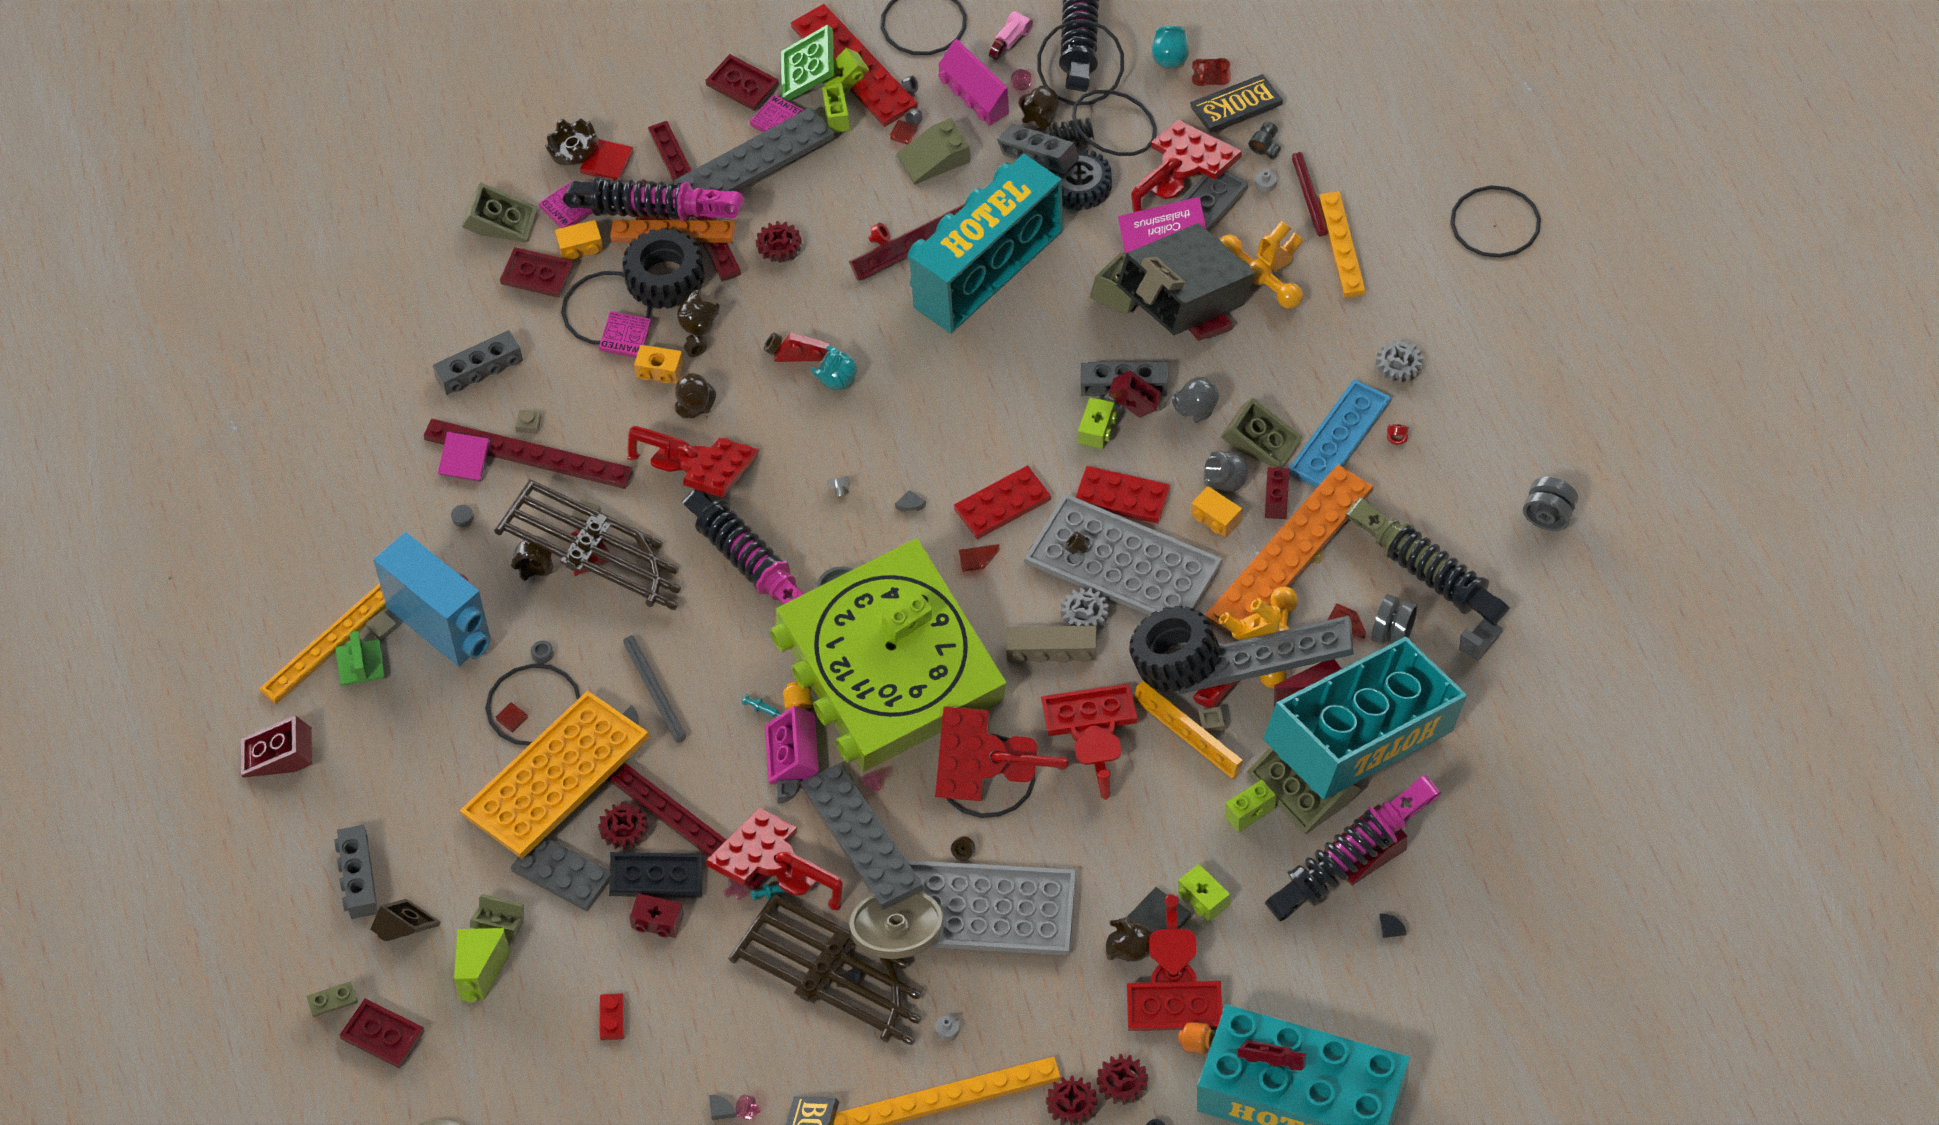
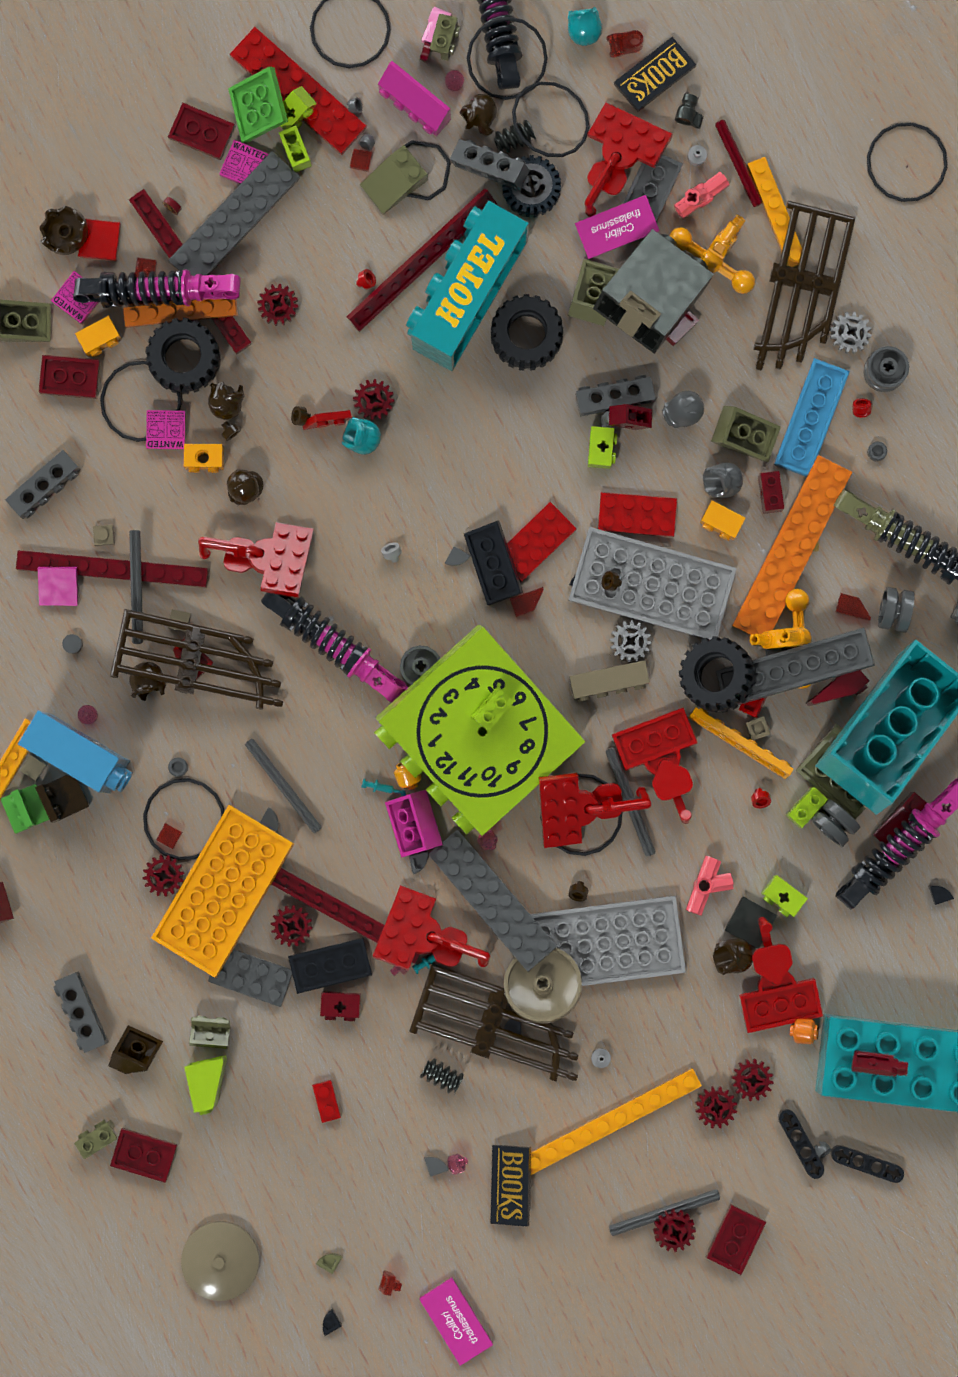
camera: 15 degrees left, 30 degrees up
(404, 657) = (62, 798): none -> dark brown bracket
(493, 751) = (167, 863): none -> dark red gear
(551, 458) = (136, 581): none -> dark grey axle
(692, 140) = (172, 205): none -> dark red tile
(752, 1009) = (442, 1075): none -> pearl dark grey piece
(858, 340) = (363, 394): none -> dark red gear
(949, 511) = (493, 563): none -> black tile
(990, 161) = (446, 172): none -> black piece
(1021, 36) = (444, 35): none -> olive bracket
(1040, 324) = (534, 308): none -> black tyre
(1046, 772) = (628, 795): none -> dark grey axle
(1124, 864) = (715, 884): none -> coral piece
(1198, 790) = (760, 799): none -> red tile
(1260, 213) = (701, 195): none -> coral piece
(1279, 821) = (833, 825): none -> dark grey wheel
(1359, 305) = (805, 280): none -> dark brown piece
(1407, 477) = (877, 451): none -> dark grey tile
(1431, 398) = (894, 361): none -> dark grey wheel

